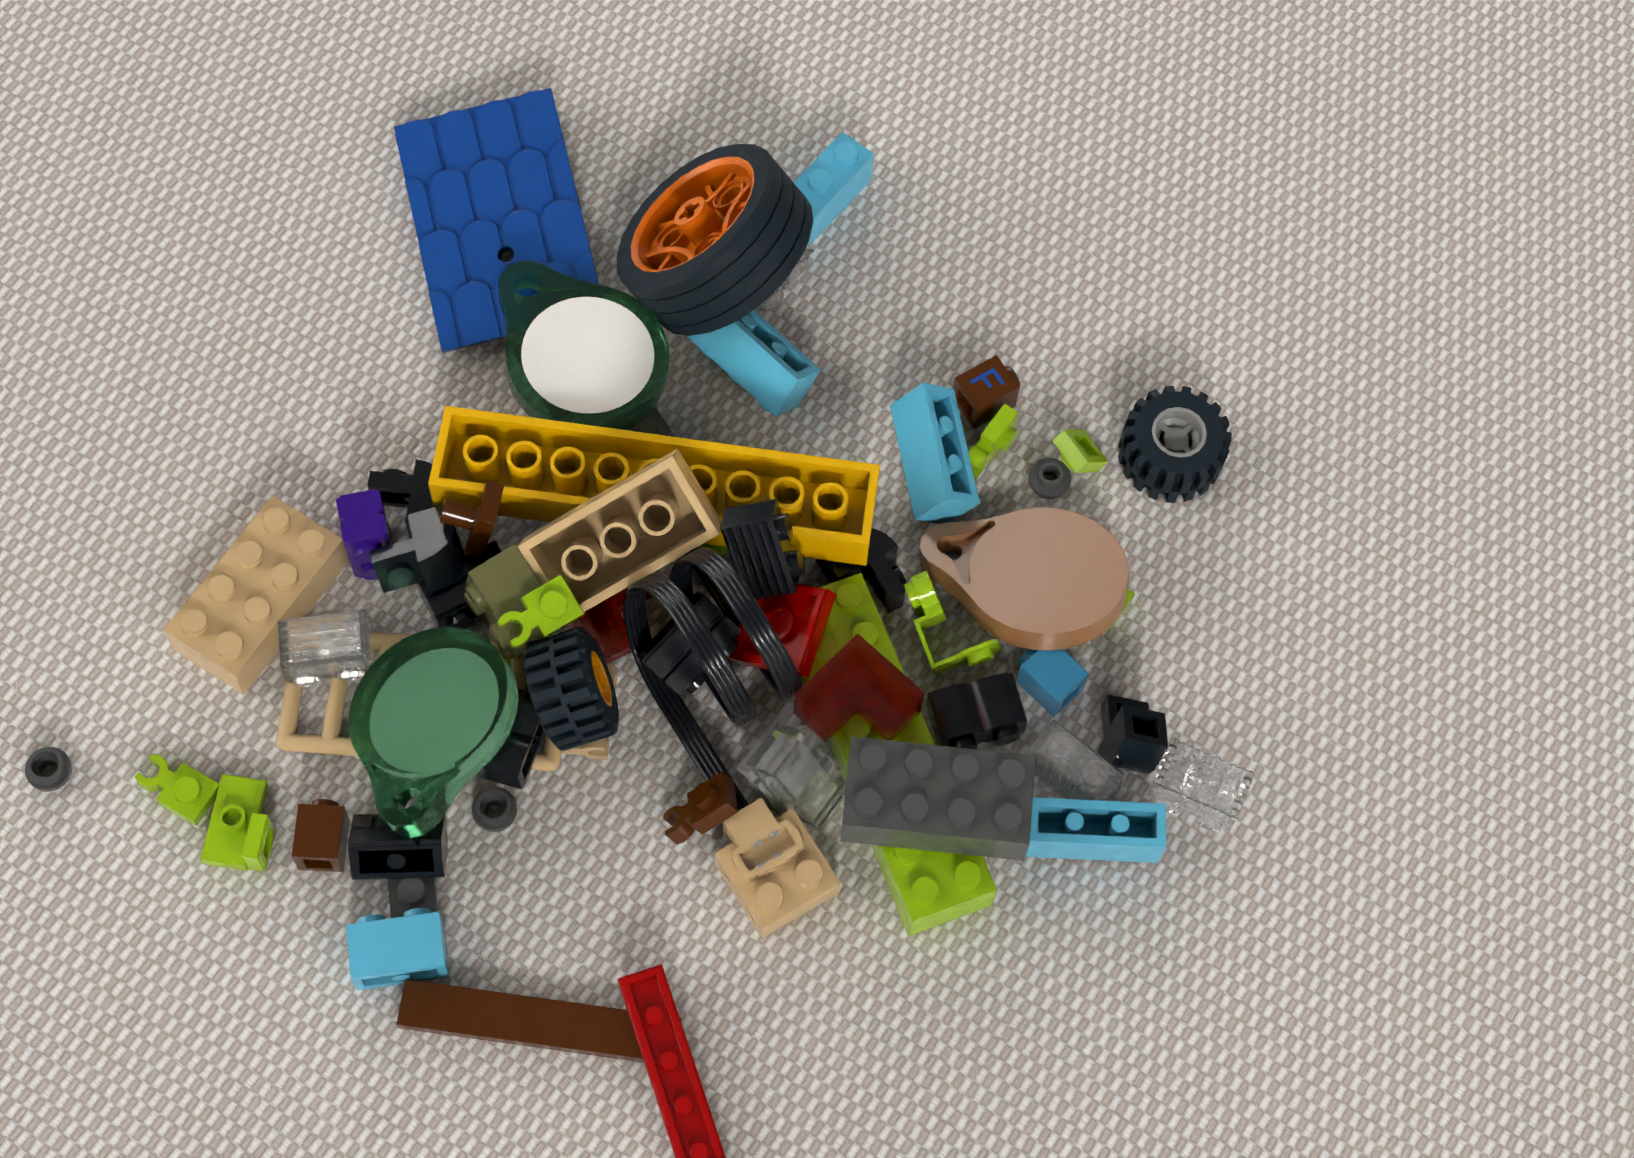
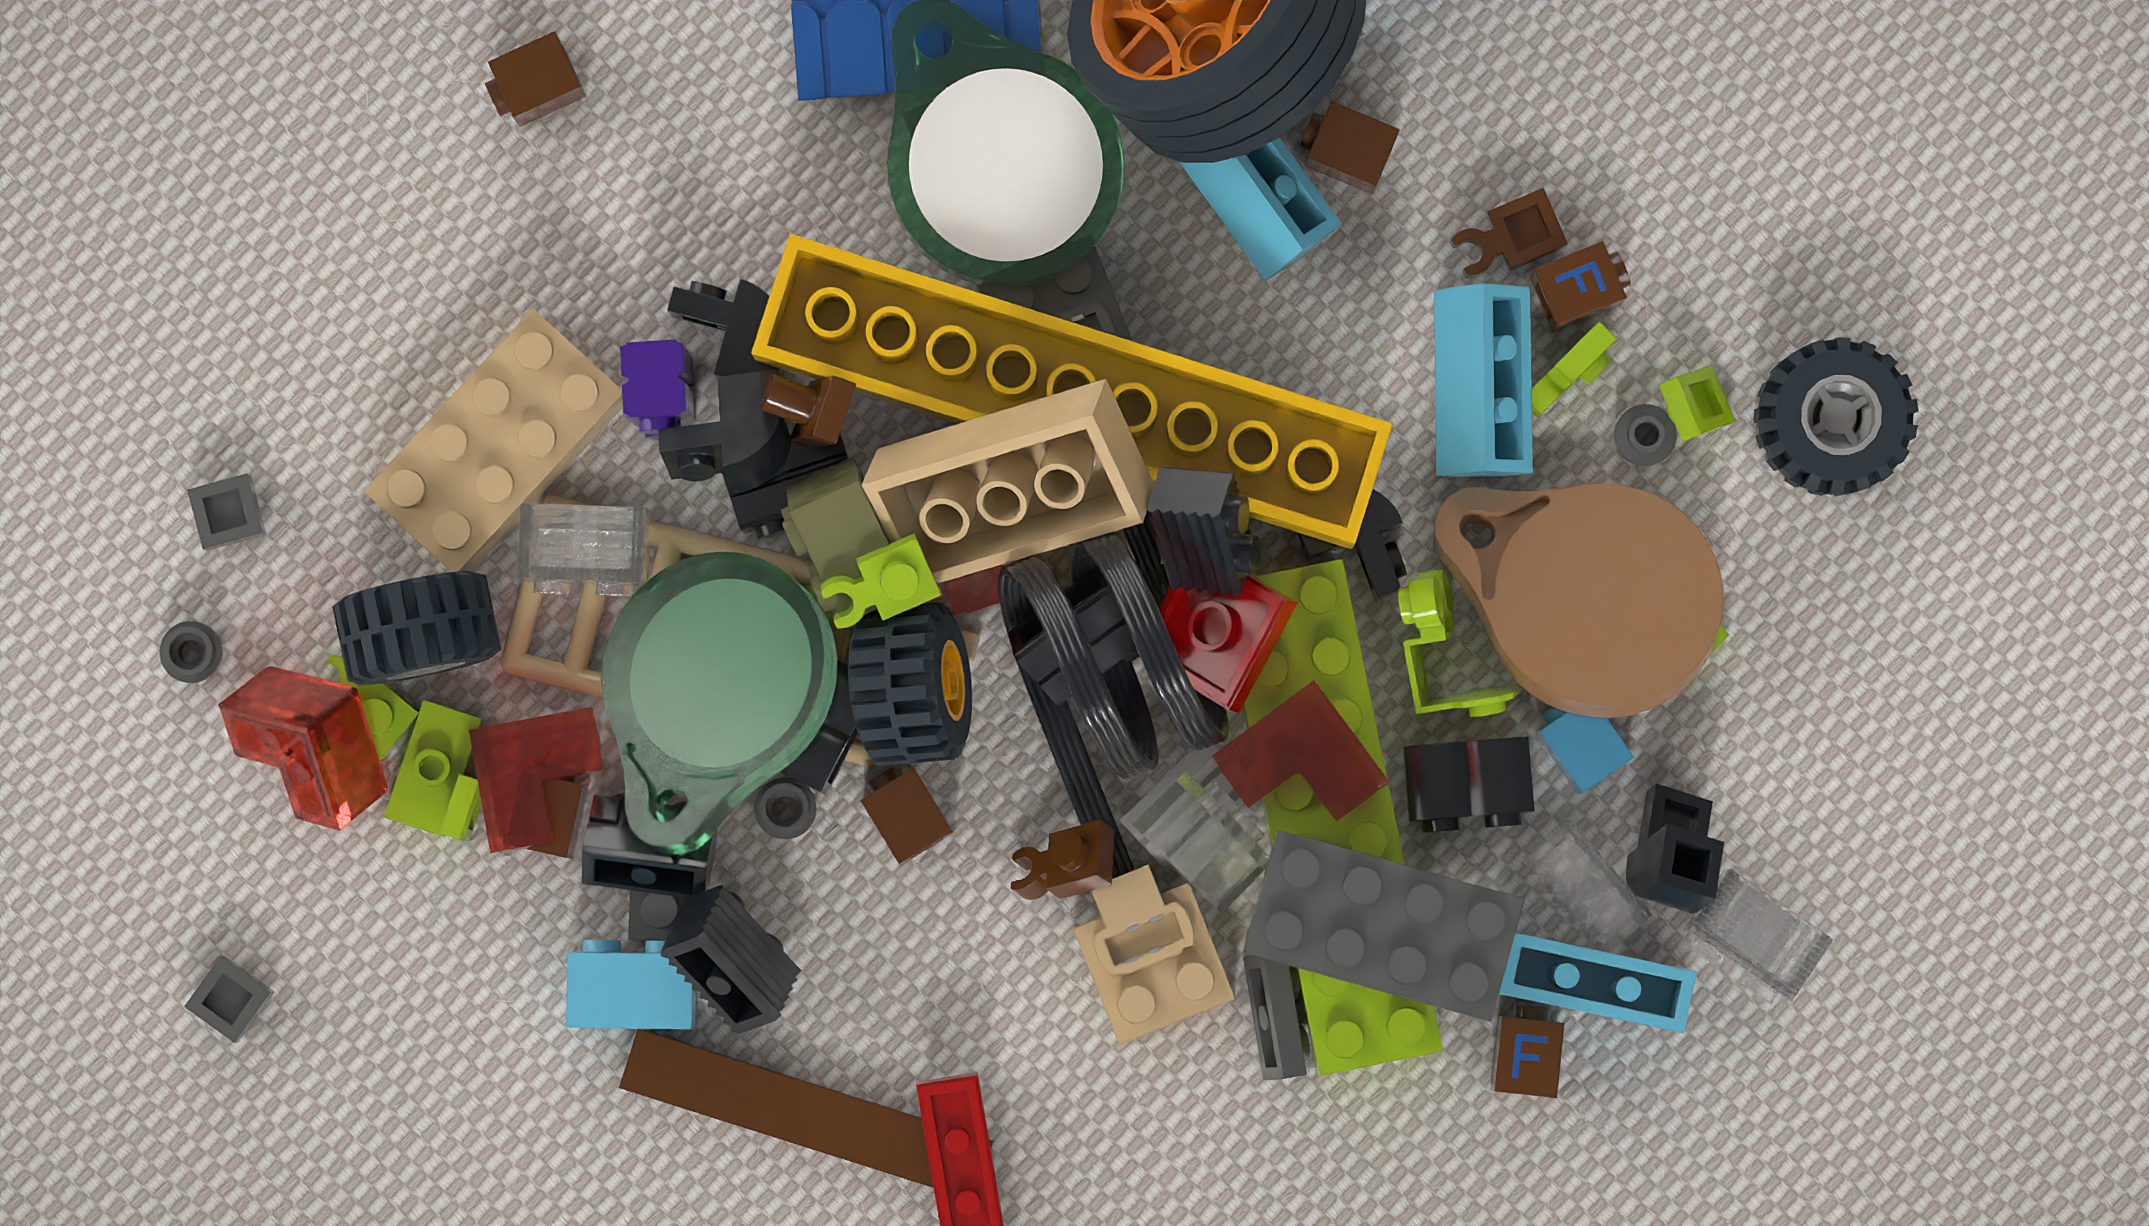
camera: 20 degrees right, 20 degrees up
(67, 669) = (226, 512): none -> dark grey plate
(95, 1007) = (229, 999): none -> dark grey plate
(145, 810) = (314, 737): none -> clear red panel
(210, 714) = (416, 627): none -> black wheel
(260, 364) = (534, 80): none -> reddish brown brick
(292, 799) = (517, 760): none -> clear red panel
(467, 909) = (730, 959): none -> black brick
(582, 797) = (905, 813): none -> reddish brown brick
(817, 328) = (1349, 146): none -> reddish brown brick
(871, 894) = (1279, 1037): none -> dark grey plate
(936, 365) = (1519, 232): none -> reddish brown plate
(1057, 891) = (1527, 1053): none -> reddish brown brick

